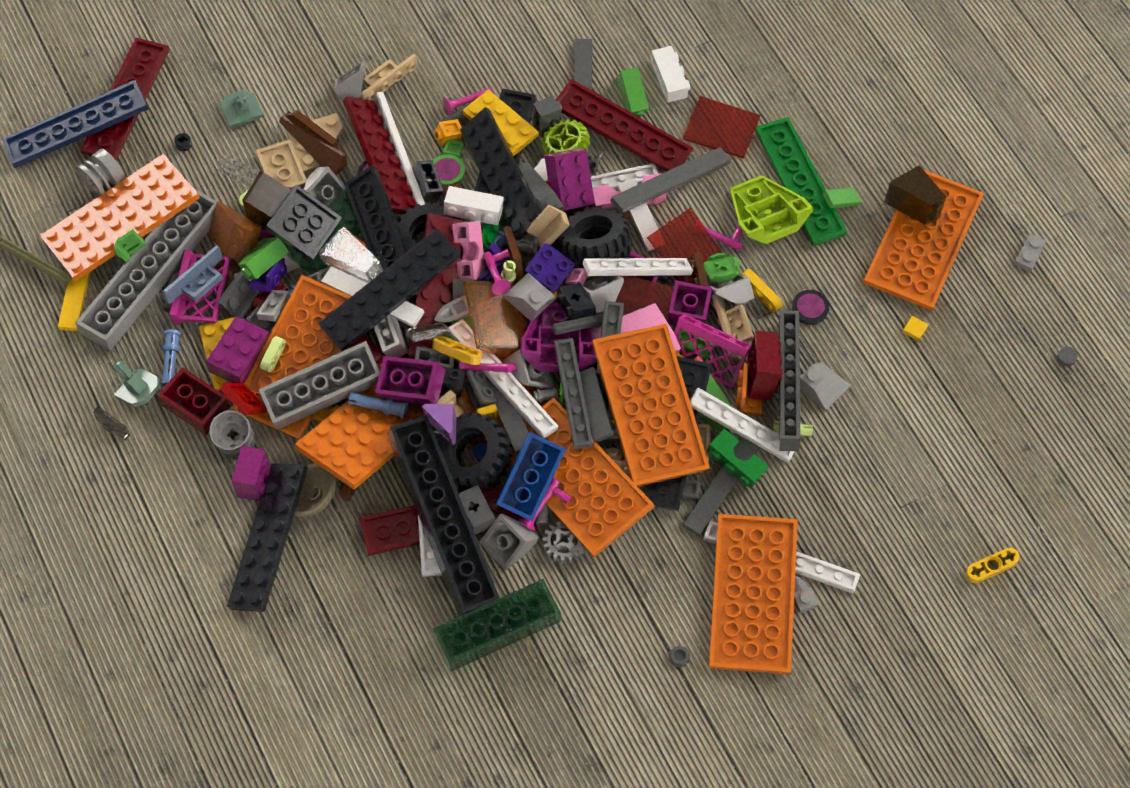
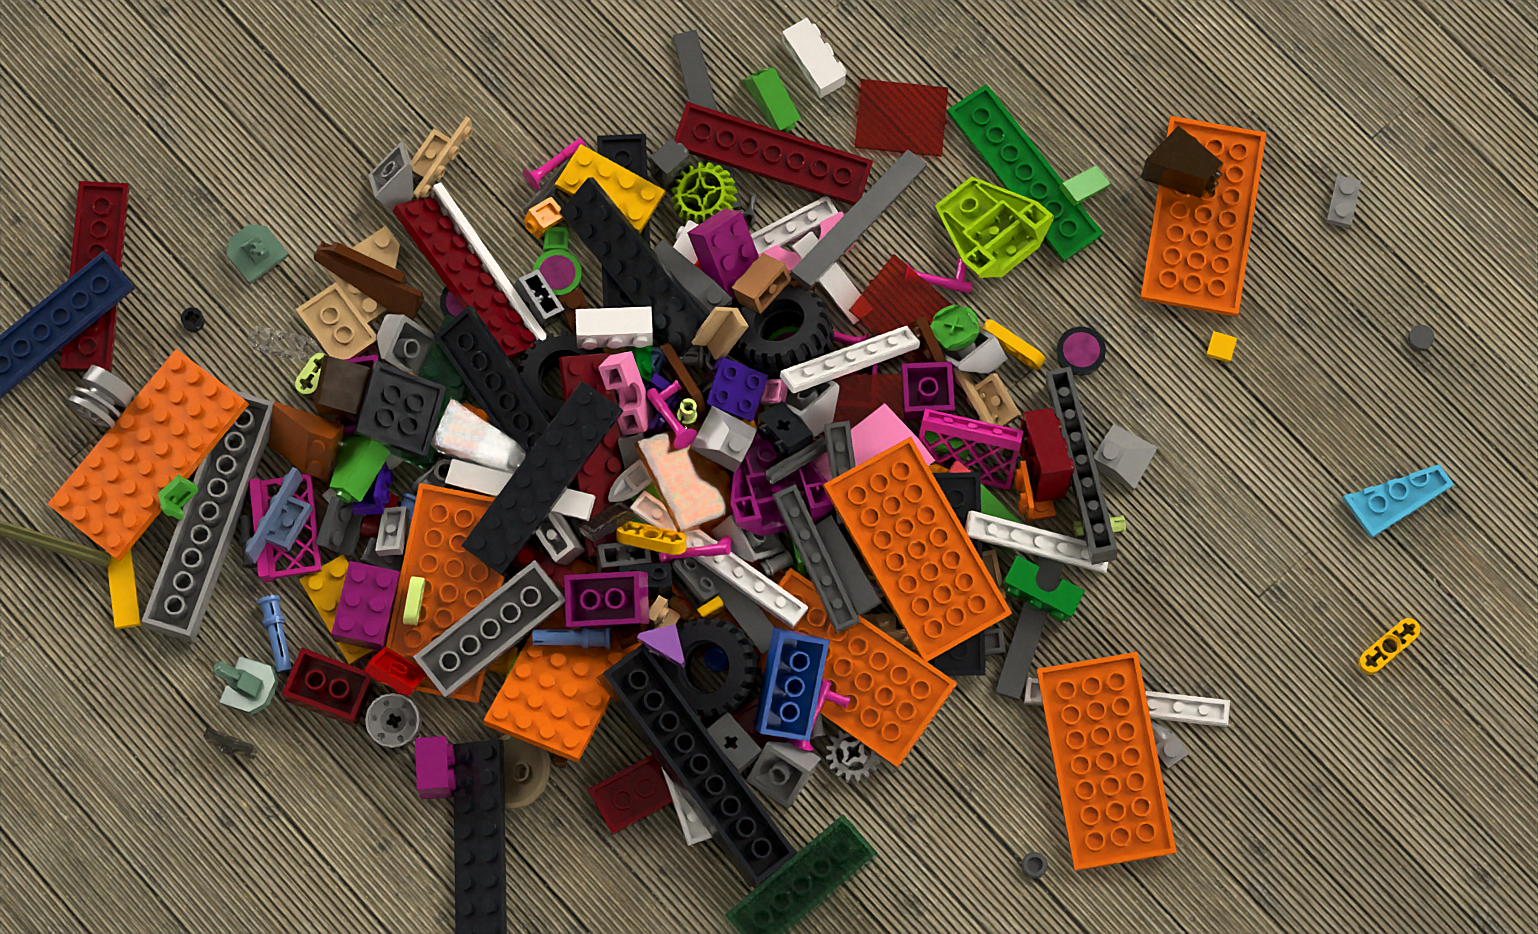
camera: 15 degrees left, 10 degrees up
(588, 201) = (761, 283): none -> medium nougat brick
(1020, 463) = (1390, 502): none -> medium azure wing

